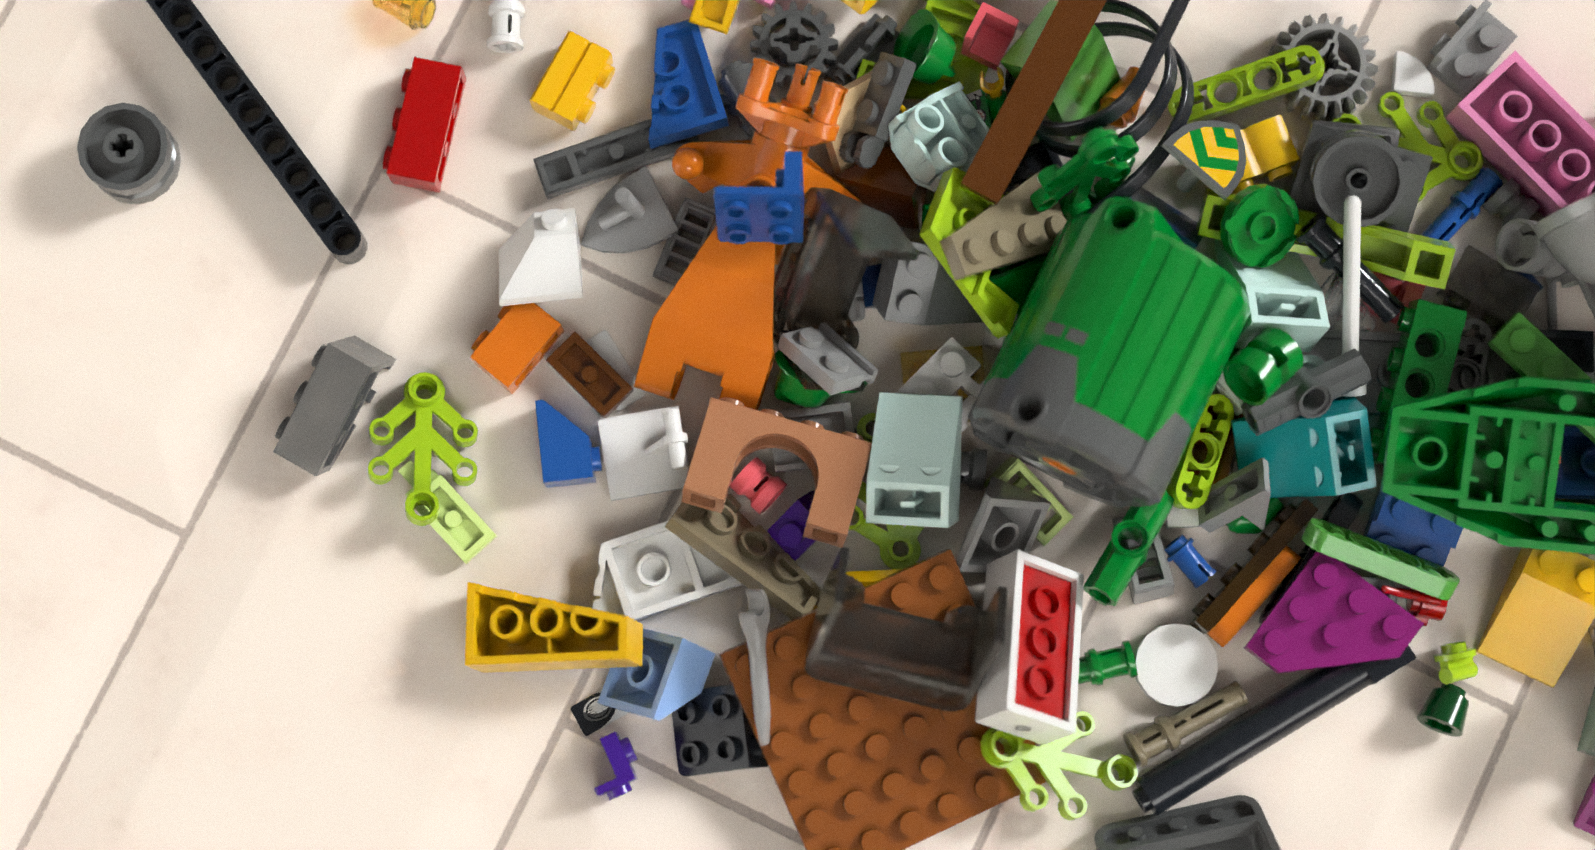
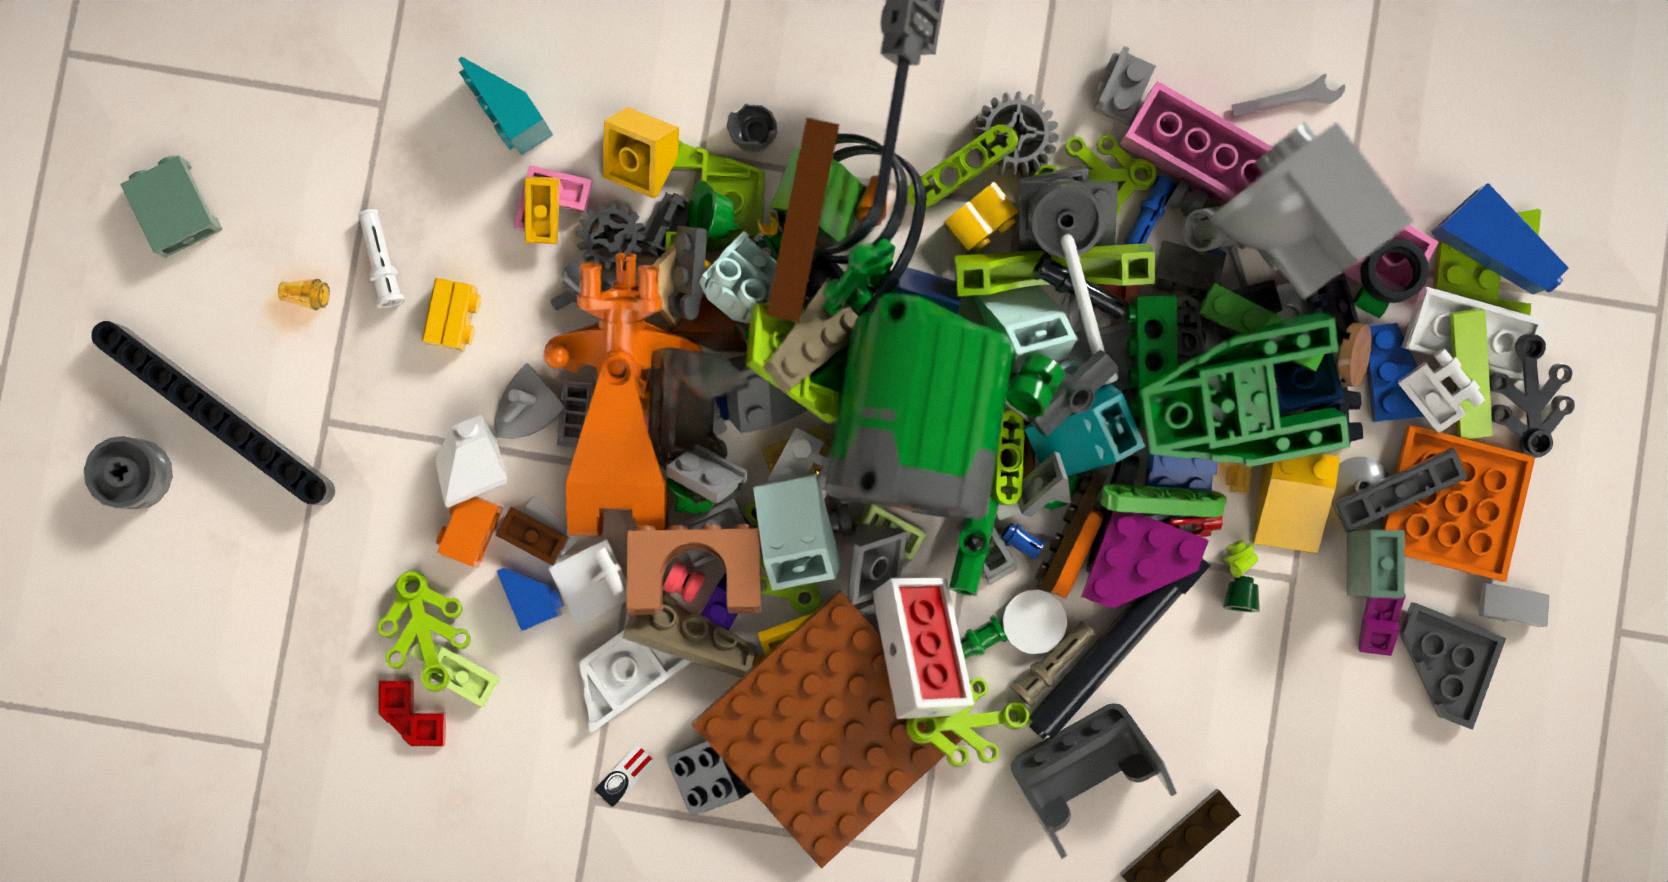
camera: 20 degrees left, 5 degrees up
(330, 403) = (342, 617): dark grey wedge -> none
(360, 536) = (397, 707): none -> red tile
(425, 124) = (348, 381): red brick -> none
(540, 634) = (549, 746): yellow wedge -> none
(601, 159) = (500, 360): dark grey plate -> none
(621, 755) = (642, 817): dark purple bracket -> none
(669, 677) = (649, 748): light blue slope -> none
(684, 87) = (537, 295): blue wing -> none
(755, 630) = (712, 699): light grey piece -> none
(764, 212) = (625, 385): blue bracket -> none
(899, 651) = (825, 681): clear smoke windscreen -> none
(989, 36) = (756, 187): coral panel -> none
(1211, 153) = (950, 231): shield -> none
(1259, 225) = (1002, 276): green tile -> none
(1411, 76) = (1084, 120): white tile -> none
(1481, 559) = (1239, 478): none -> clear yellow bracket

